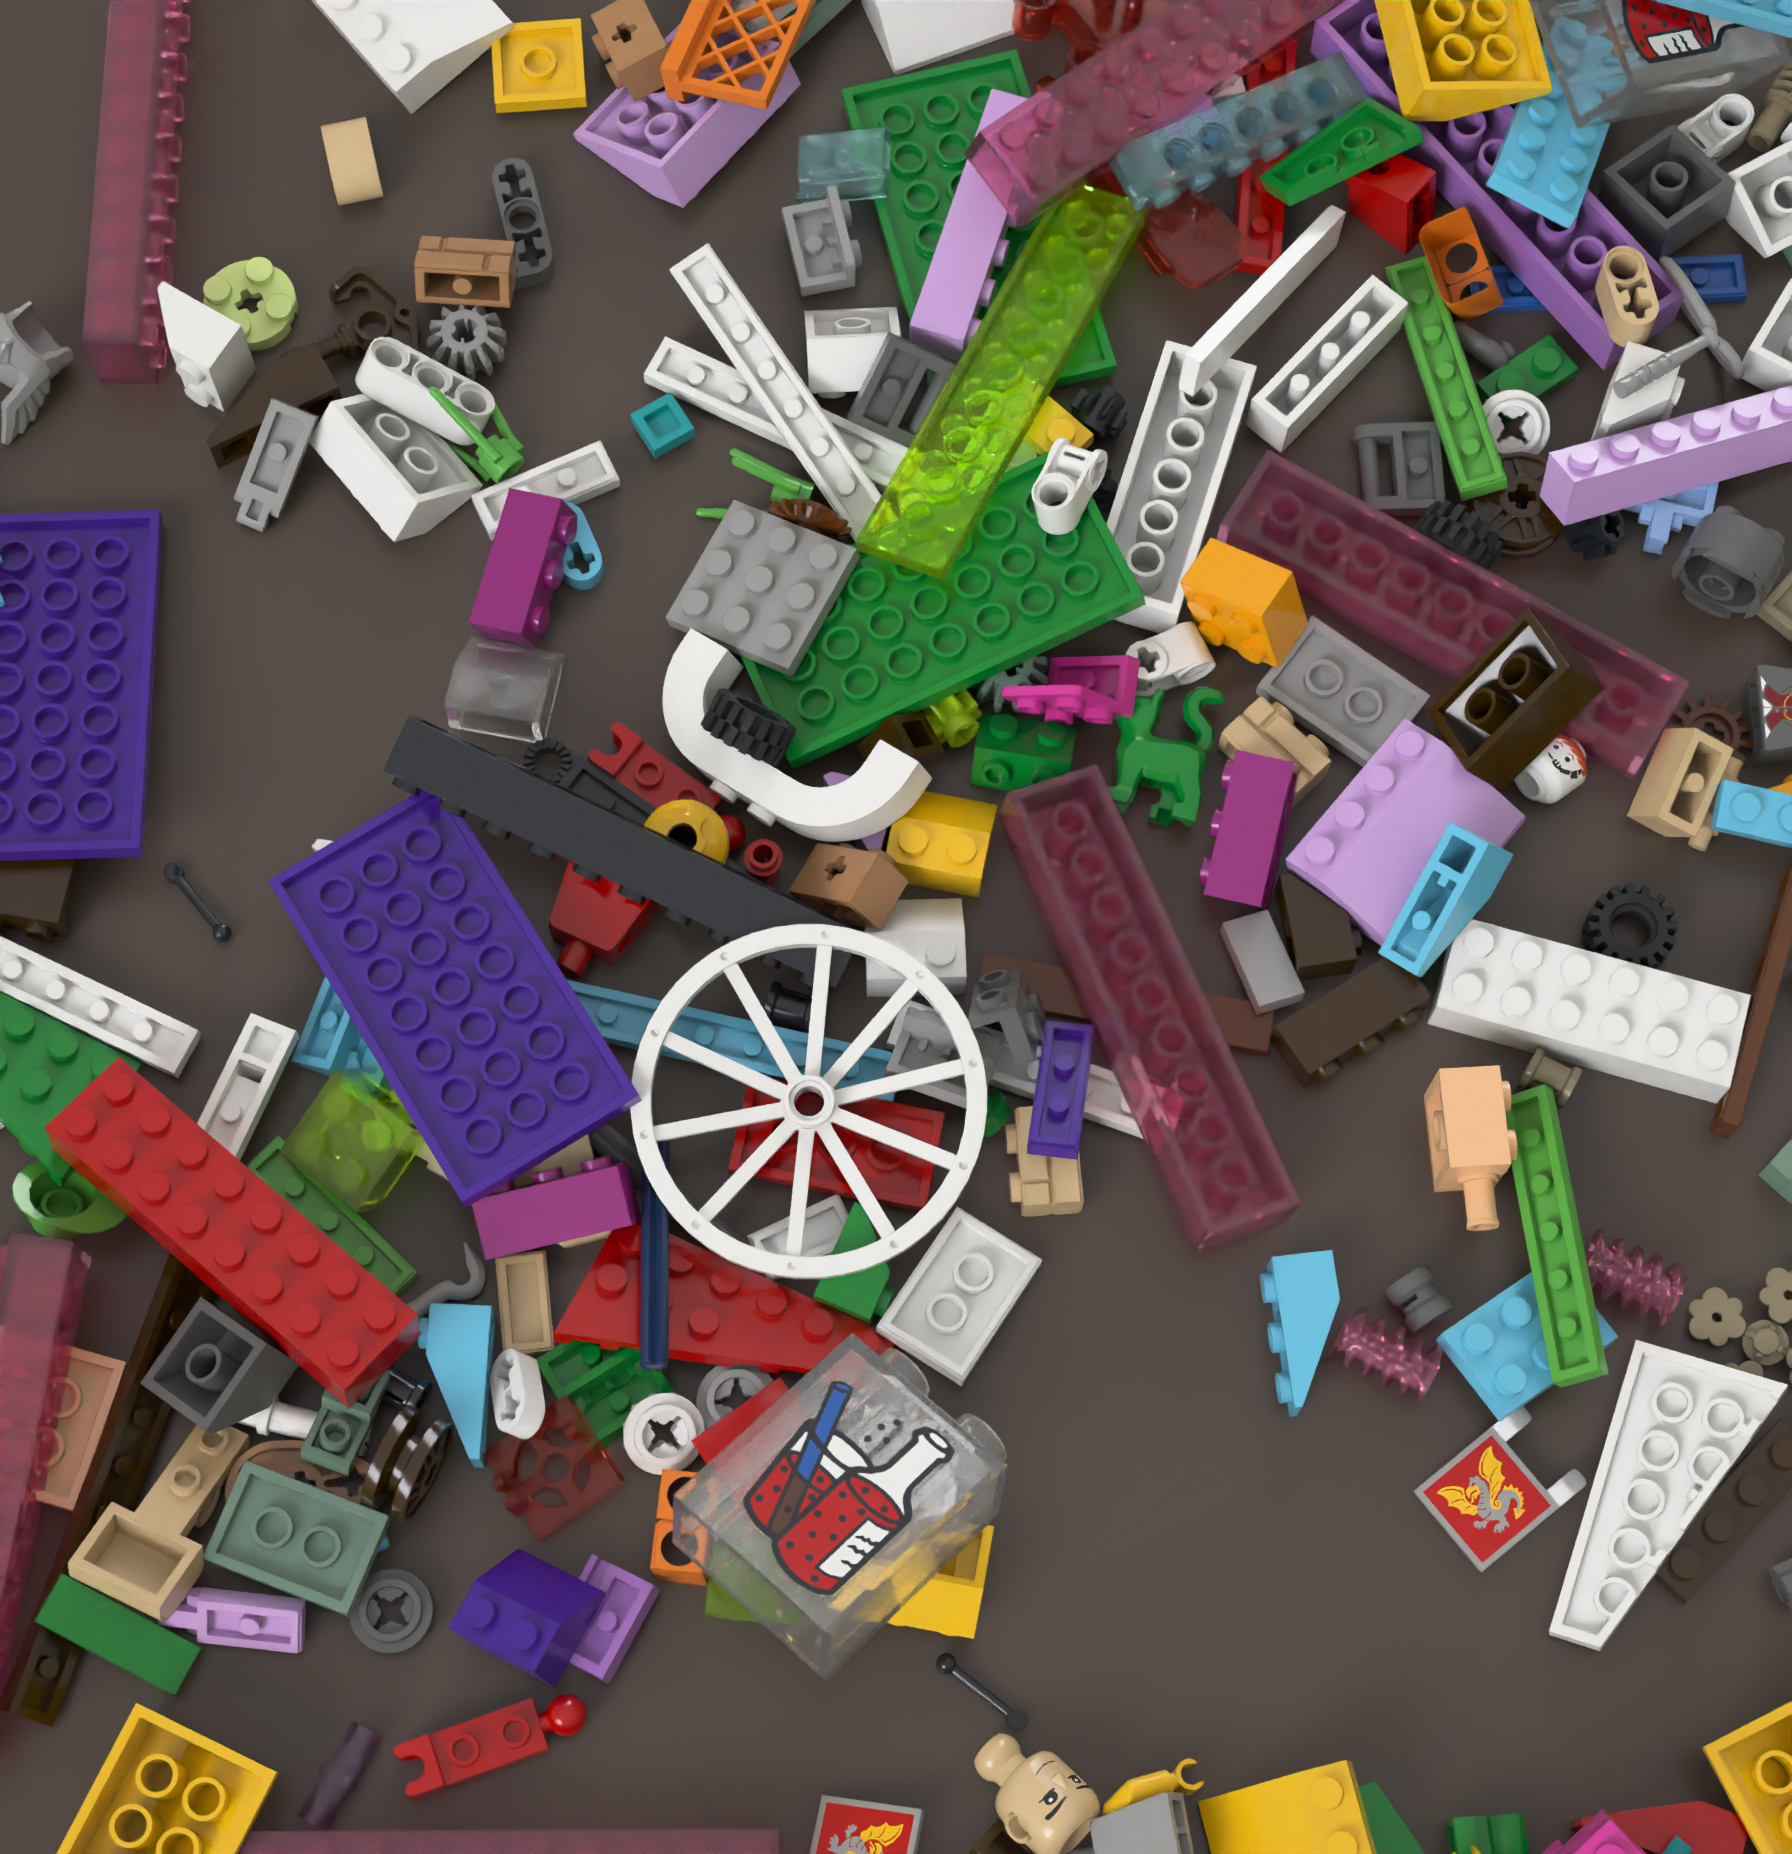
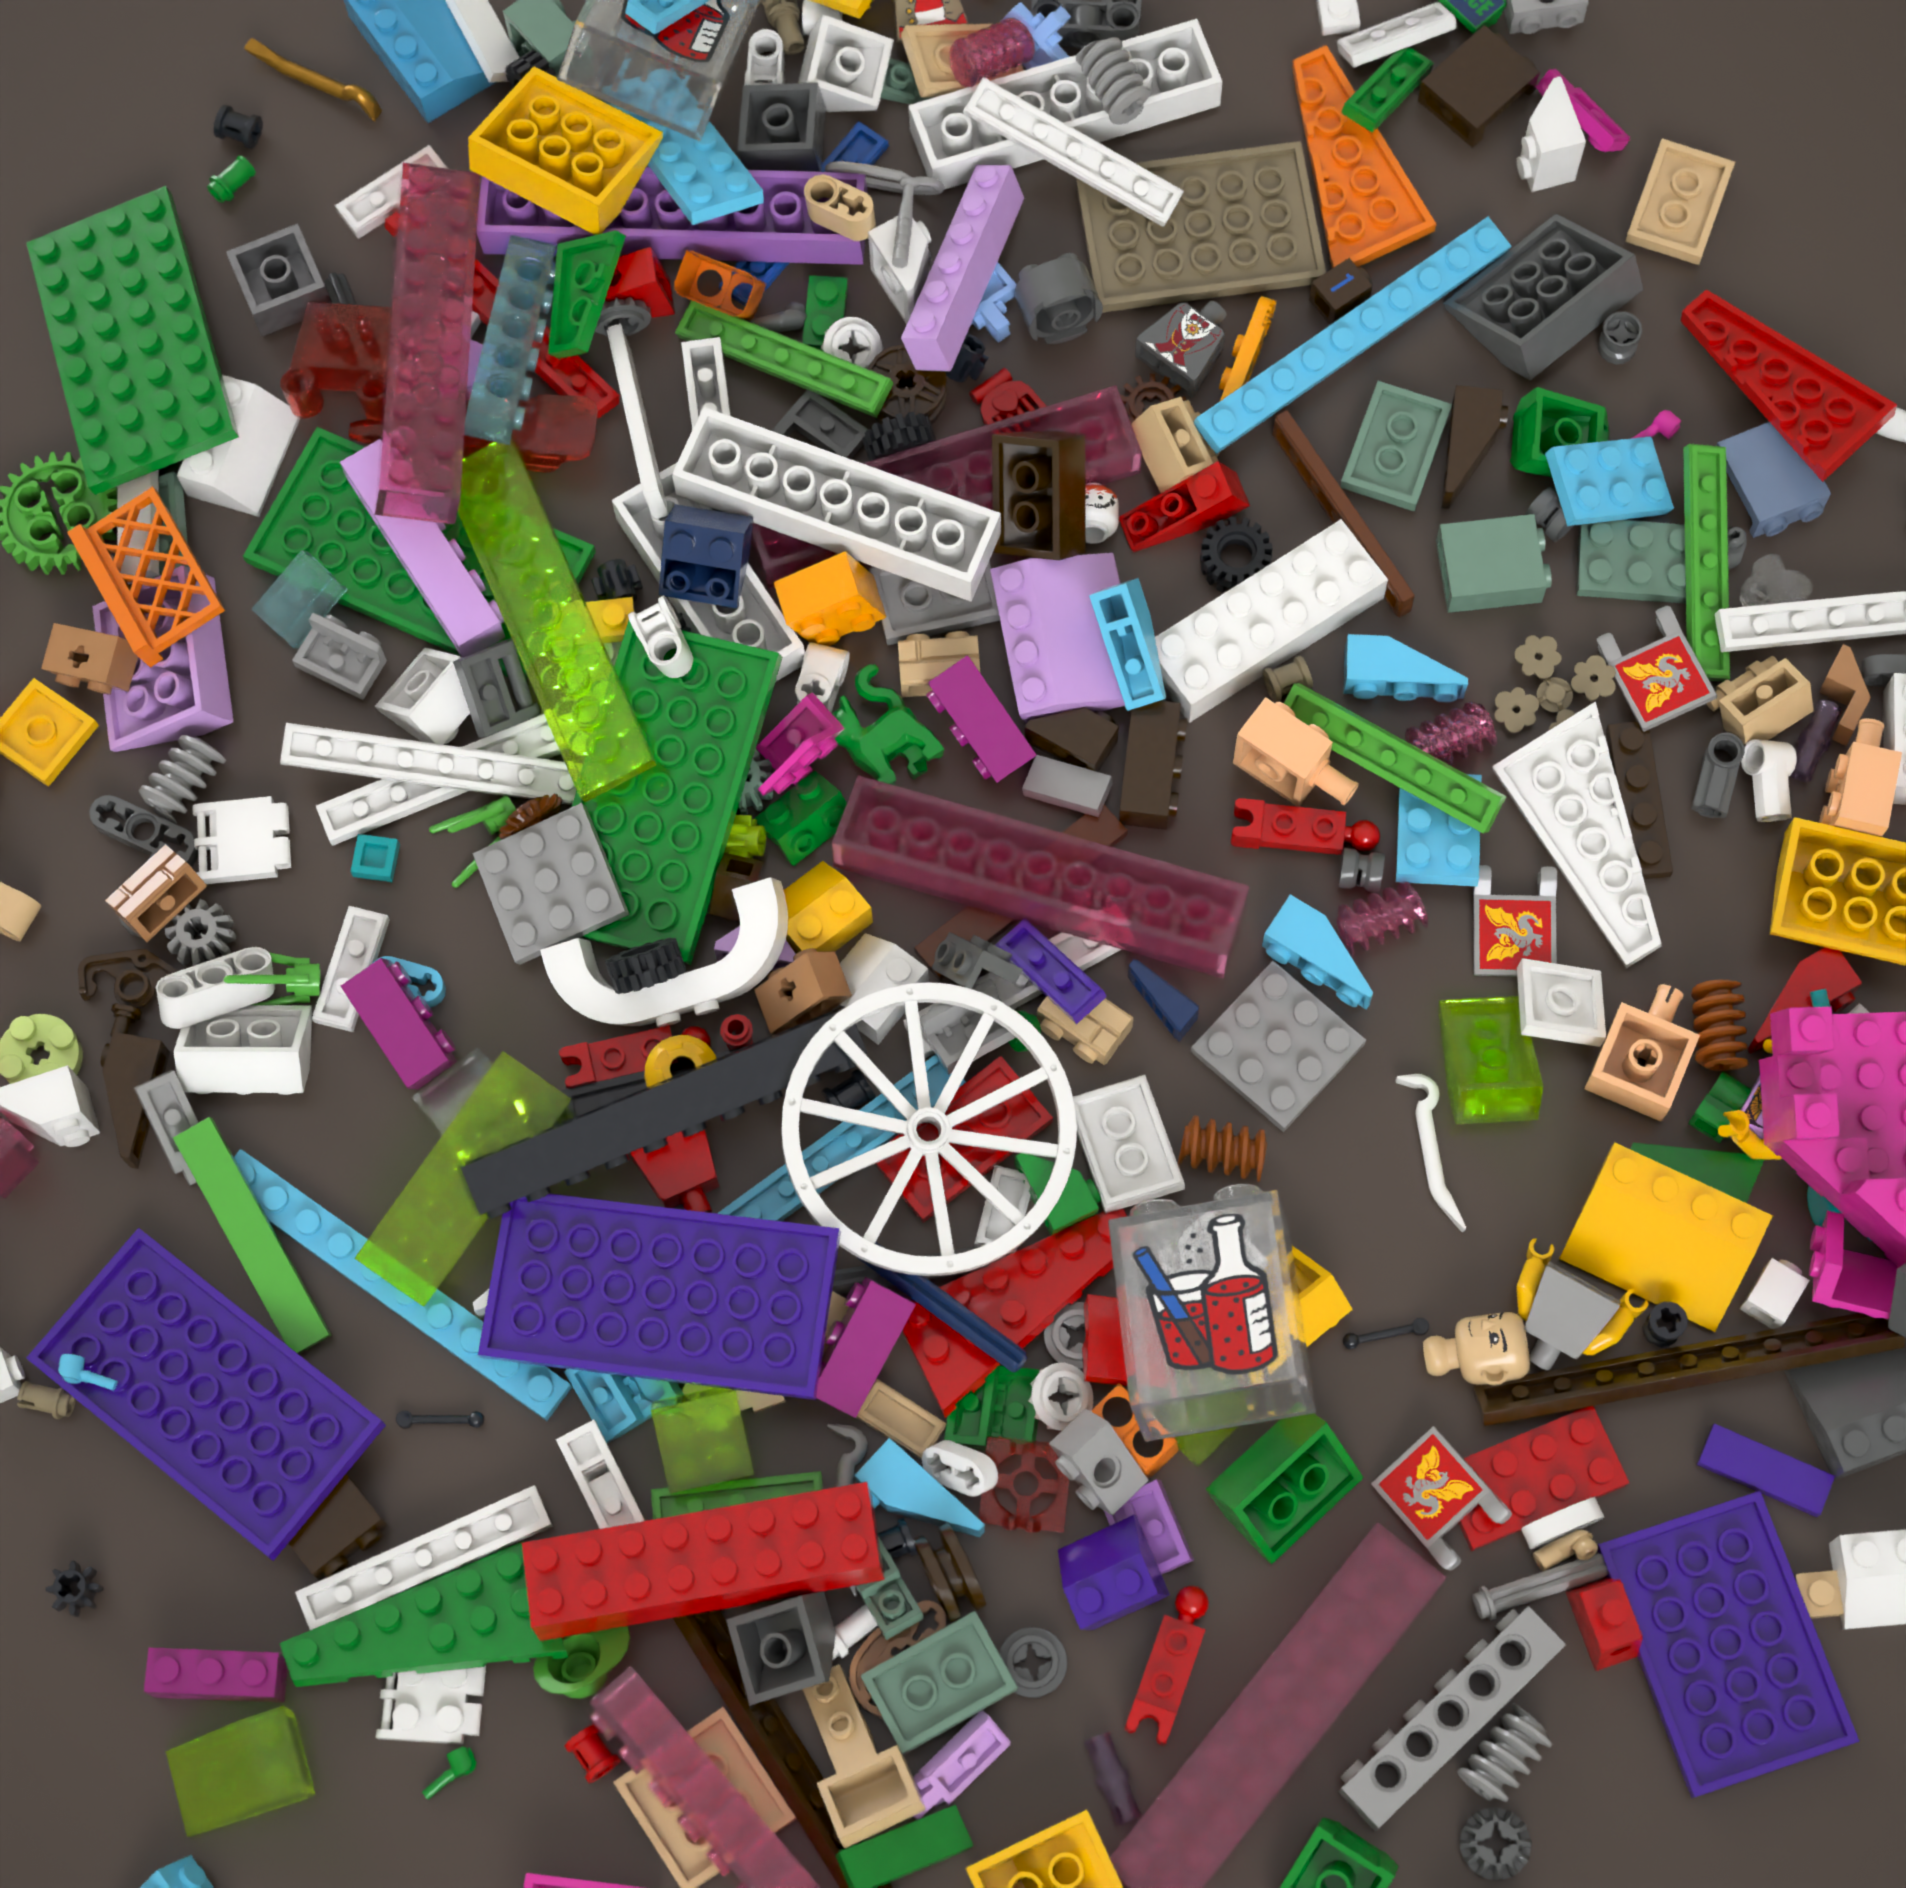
camera: 45 degrees left, 0 degrees up
(227, 608) = (252, 1236): none -> bright green tile
(285, 747) = (440, 1319): none -> medium azure plate
(345, 741) = (433, 1215): none -> clear neon green plate
(583, 304) = (242, 839): none -> white plate
(594, 207) = (180, 776): none -> light grey piece
(625, 1489) = (1097, 1462): none -> light grey brick
(750, 1712) = (1285, 1483): none -> green slope
(1029, 1389) = (1223, 1148): none -> dark orange piece
(1128, 1232) = (1168, 1003): none -> dark blue slope
(1179, 1362) = (1278, 1046): none -> light grey plate
(1182, 458) = (705, 555): none -> dark blue slope
(1206, 1583) = (1430, 1146): none -> white piece
(1336, 531) = (837, 503): none -> white brick
(1337, 1573) = (1488, 1061): none -> clear neon green slope
(1362, 215) = (631, 314): none -> dark grey gear
(1411, 1209) = (1299, 828): none -> red plate
(1453, 1597) = (1561, 1002): none -> white plate
(1496, 1718) = (1649, 1037): none -> light nougat brick
(1566, 1771) = (1716, 1025): none -> dark orange piece
(1590, 597) = (1002, 397): none -> red piece
(1635, 847) = (1185, 508): none -> red slope
(1648, 1165) = (1390, 668): none -> medium azure slope

